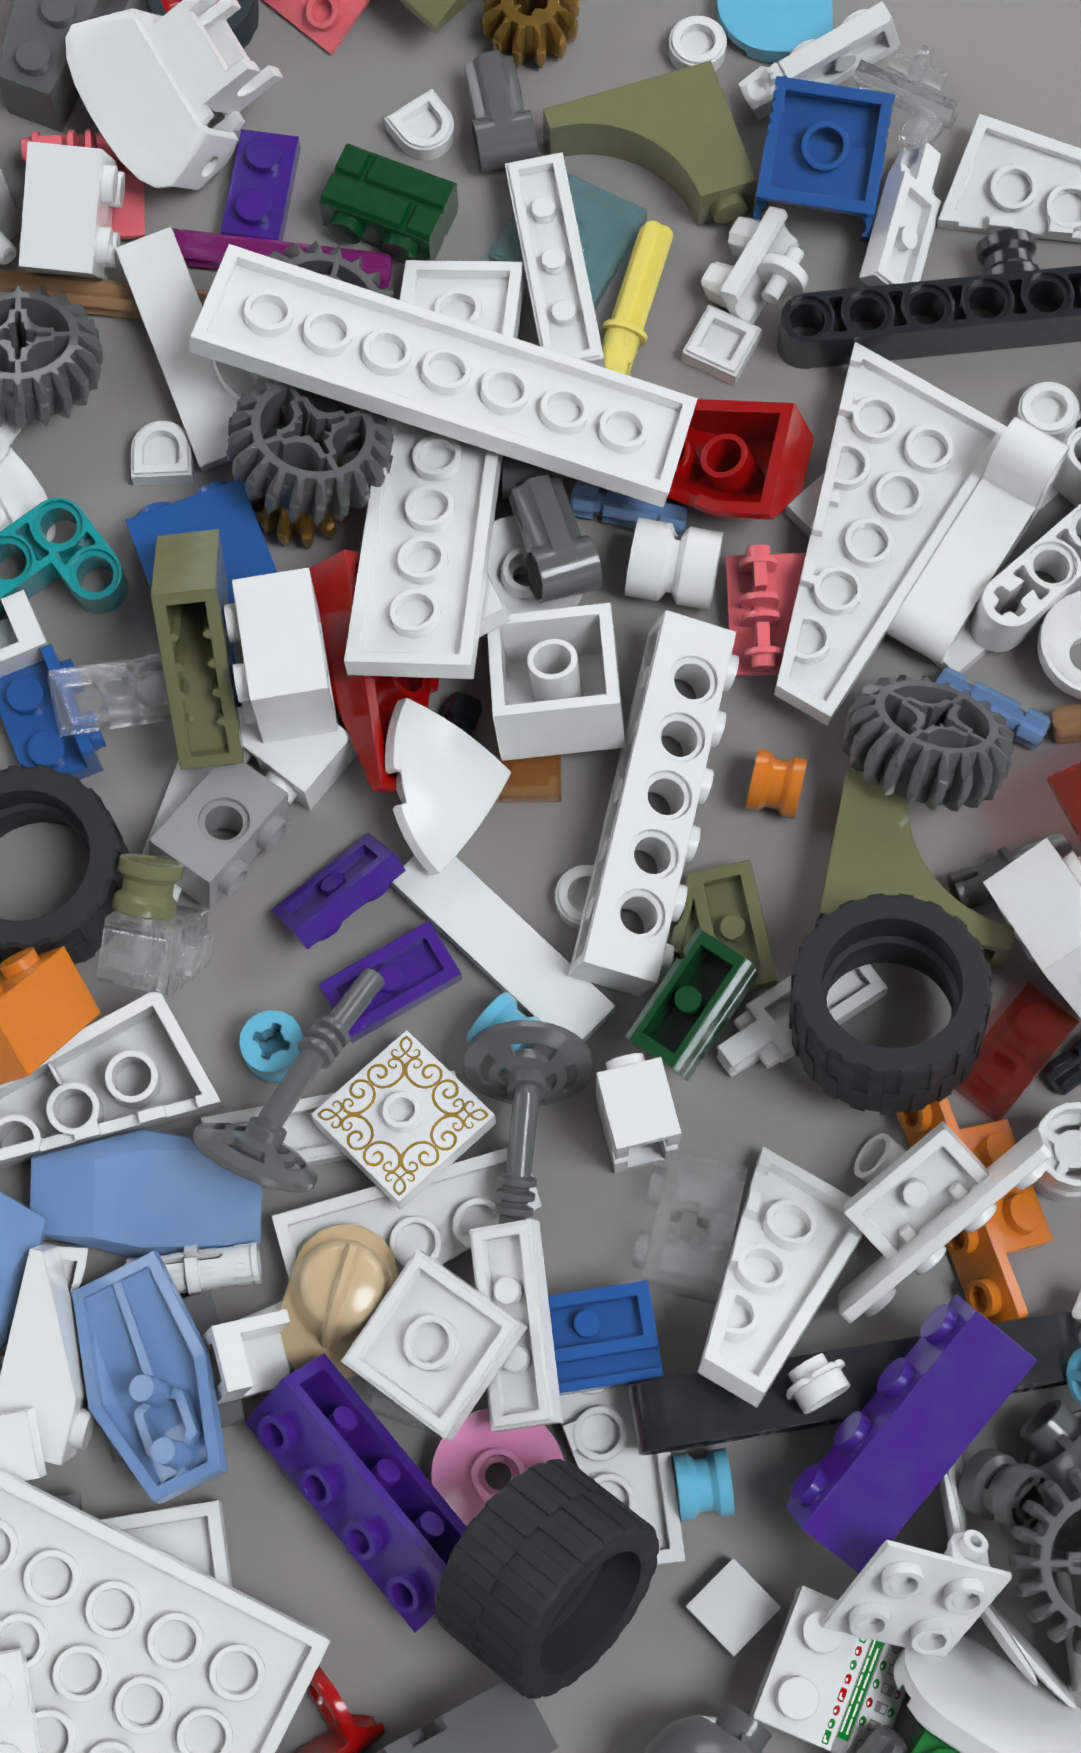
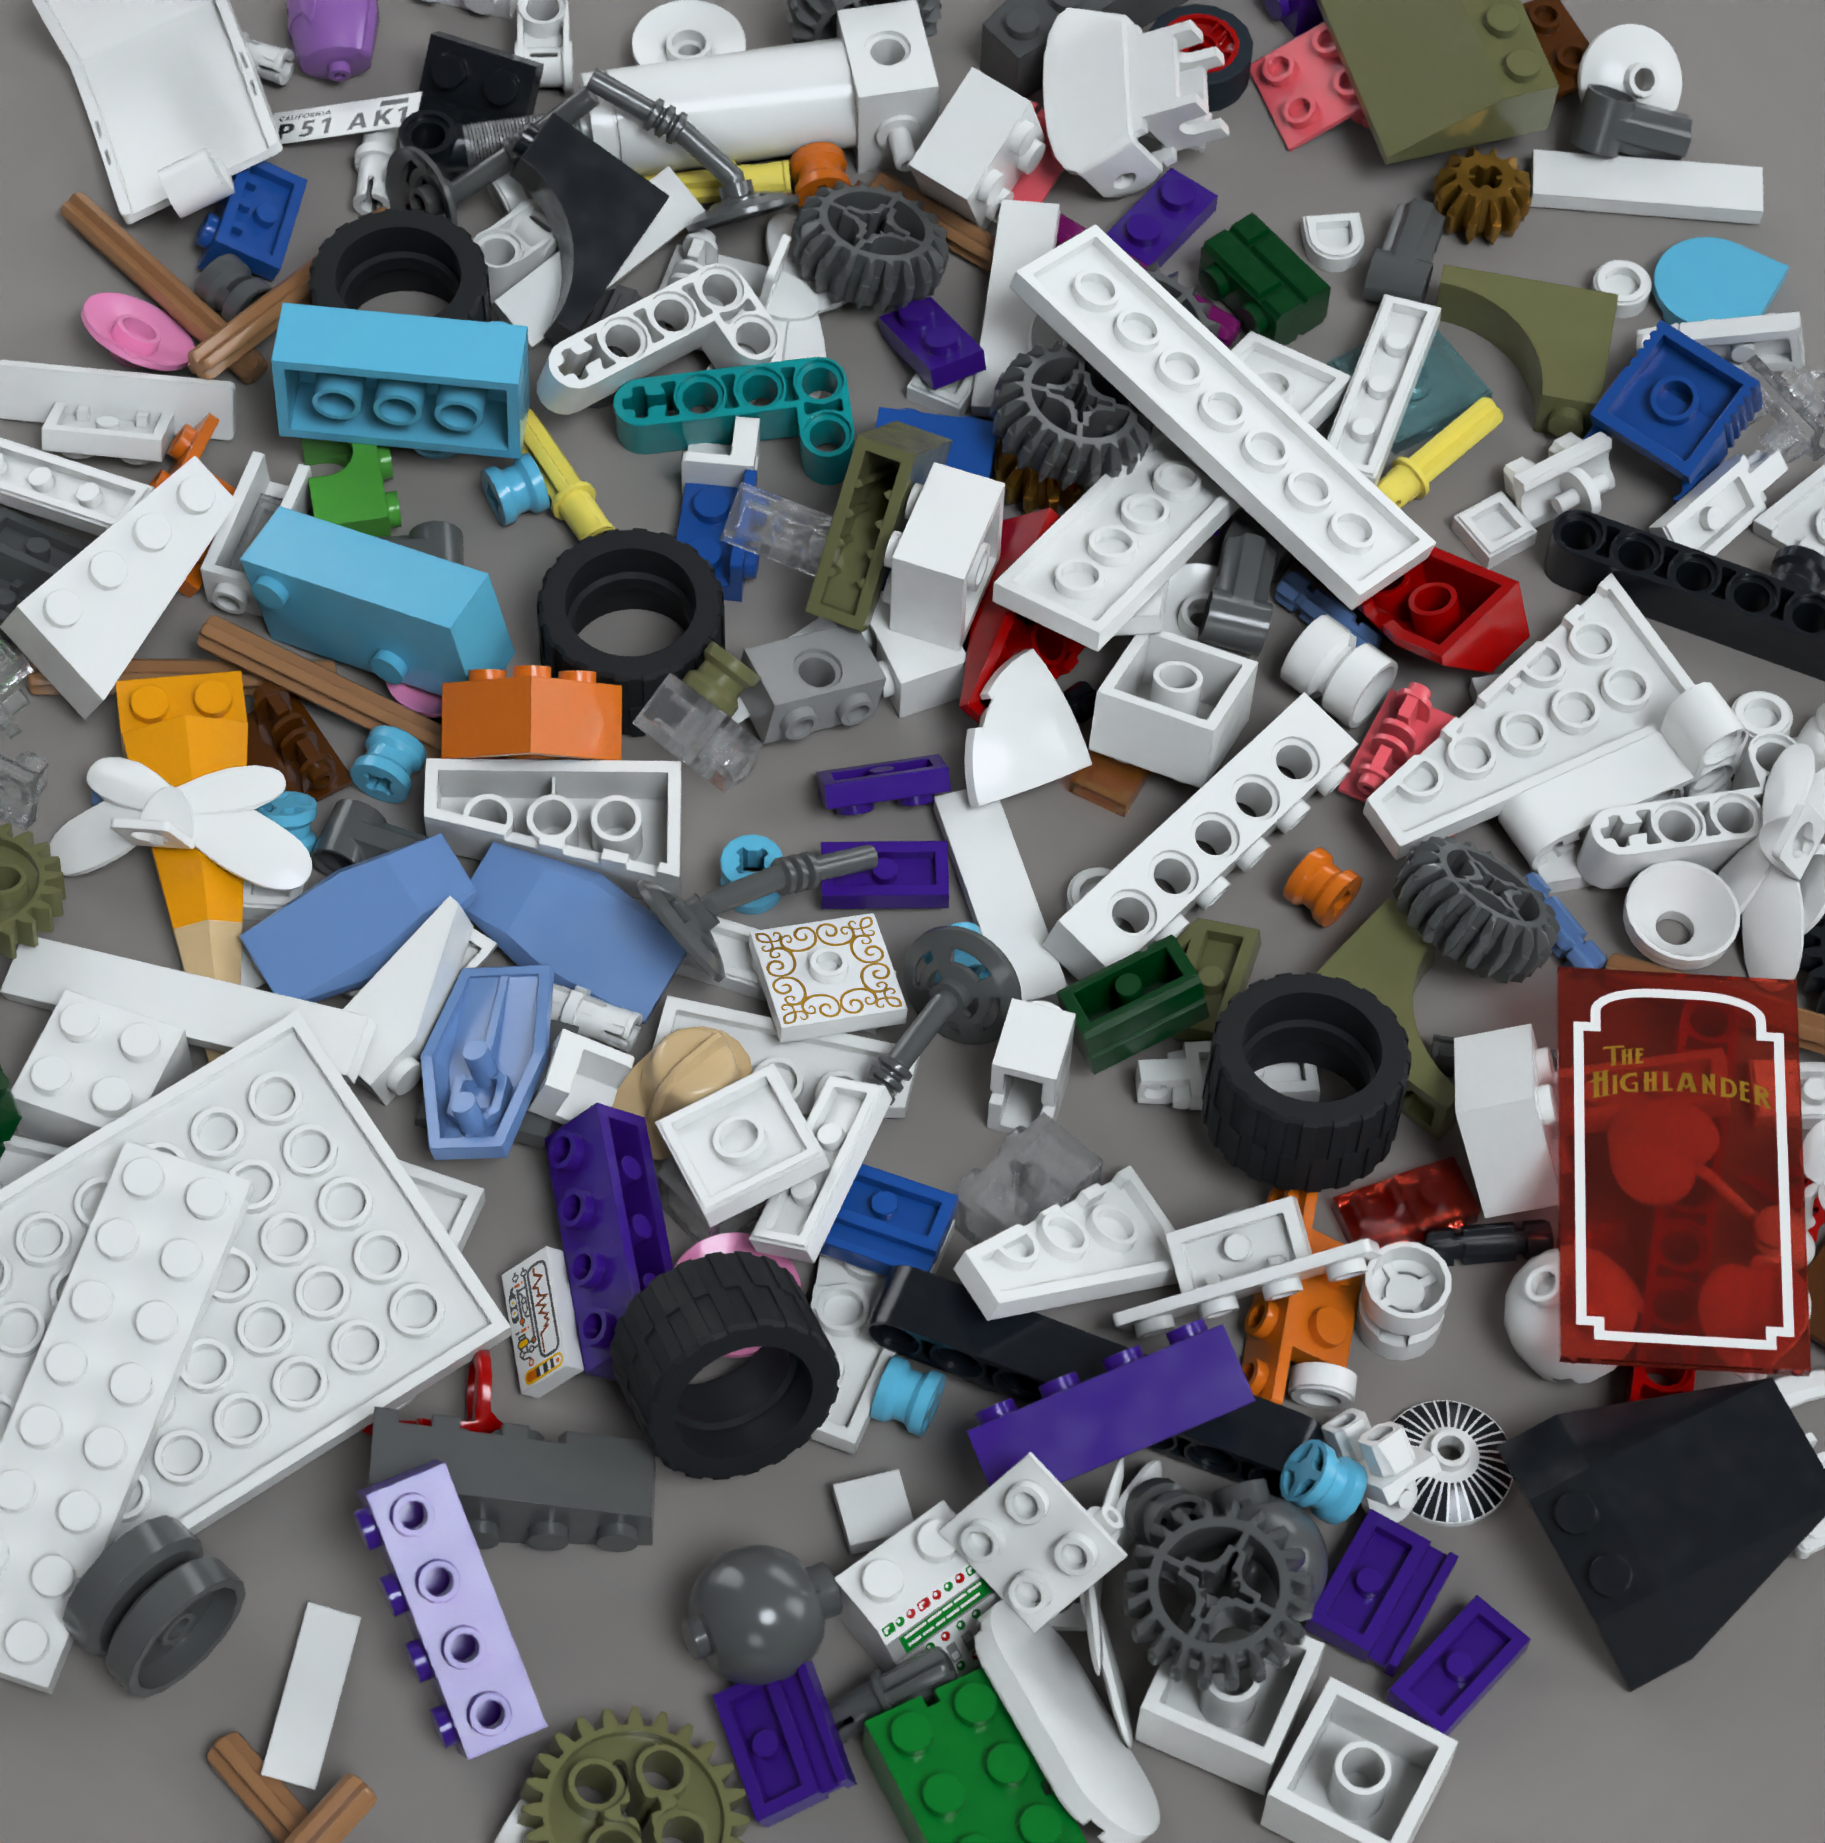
camera: 25 degrees right, 15 degrees down
(131, 423) = (932, 343): none -> dark purple plate
(344, 1599) = (542, 1322): none -> white tile
(817, 1382) = (1053, 1339): white plate -> none
(1045, 1268) = (1322, 1385): none -> white tile

